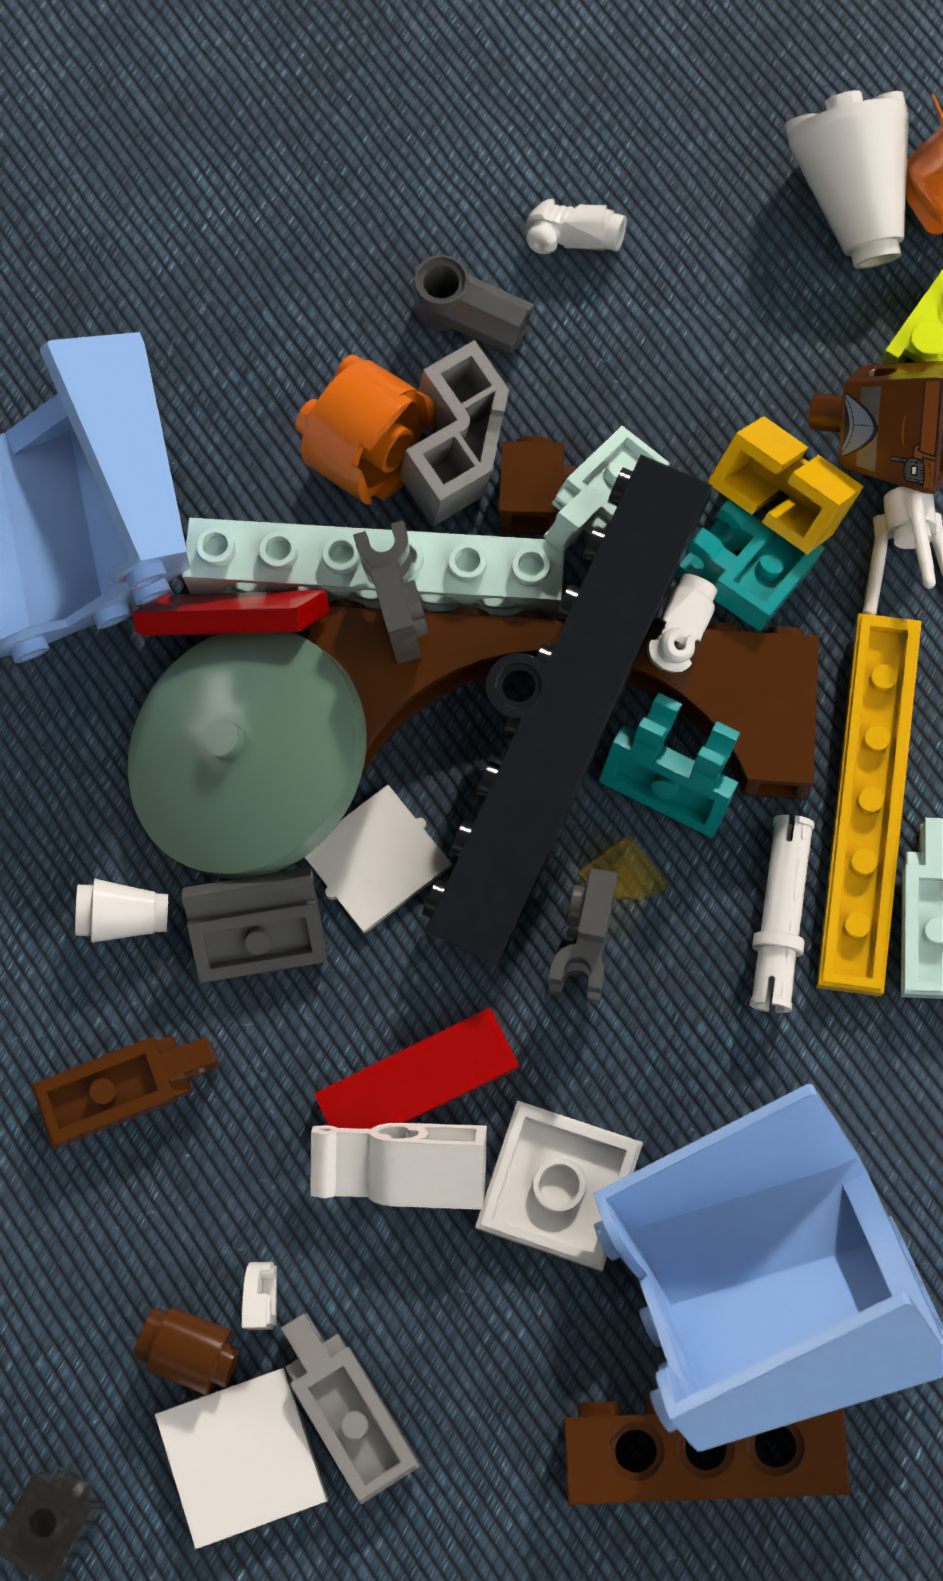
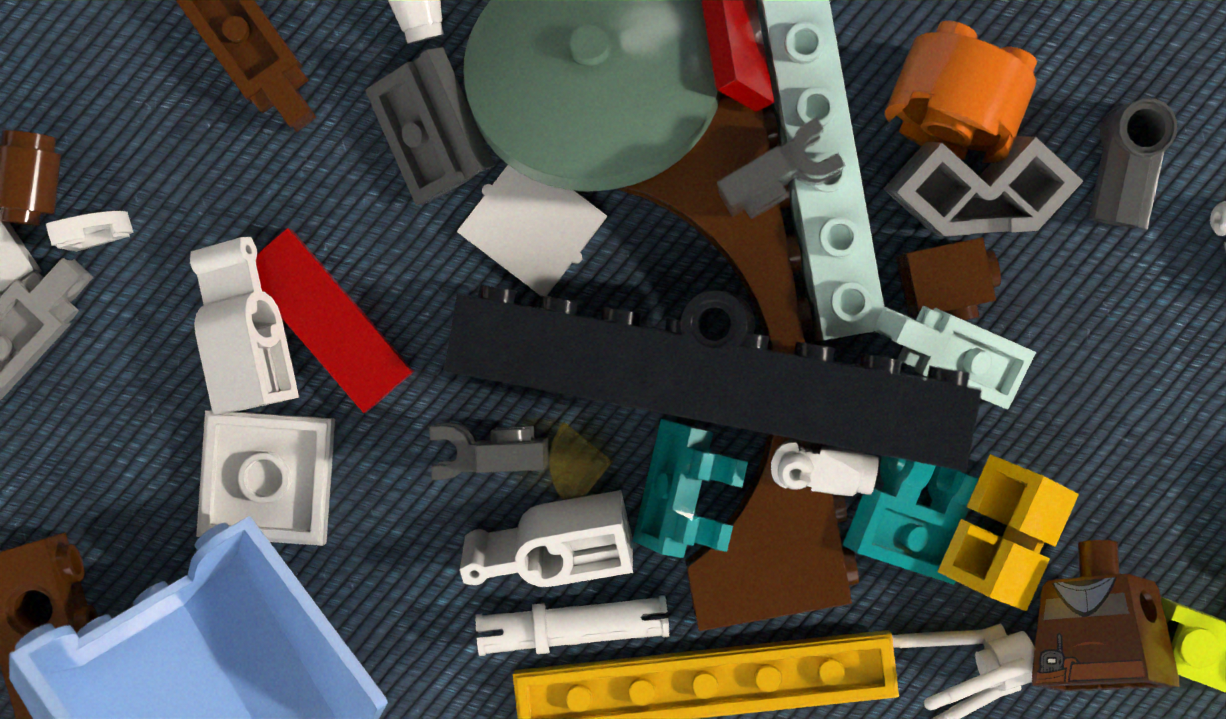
camera: 65 degrees right, 15 degrees up
(698, 872) = (555, 544): none -> white piece

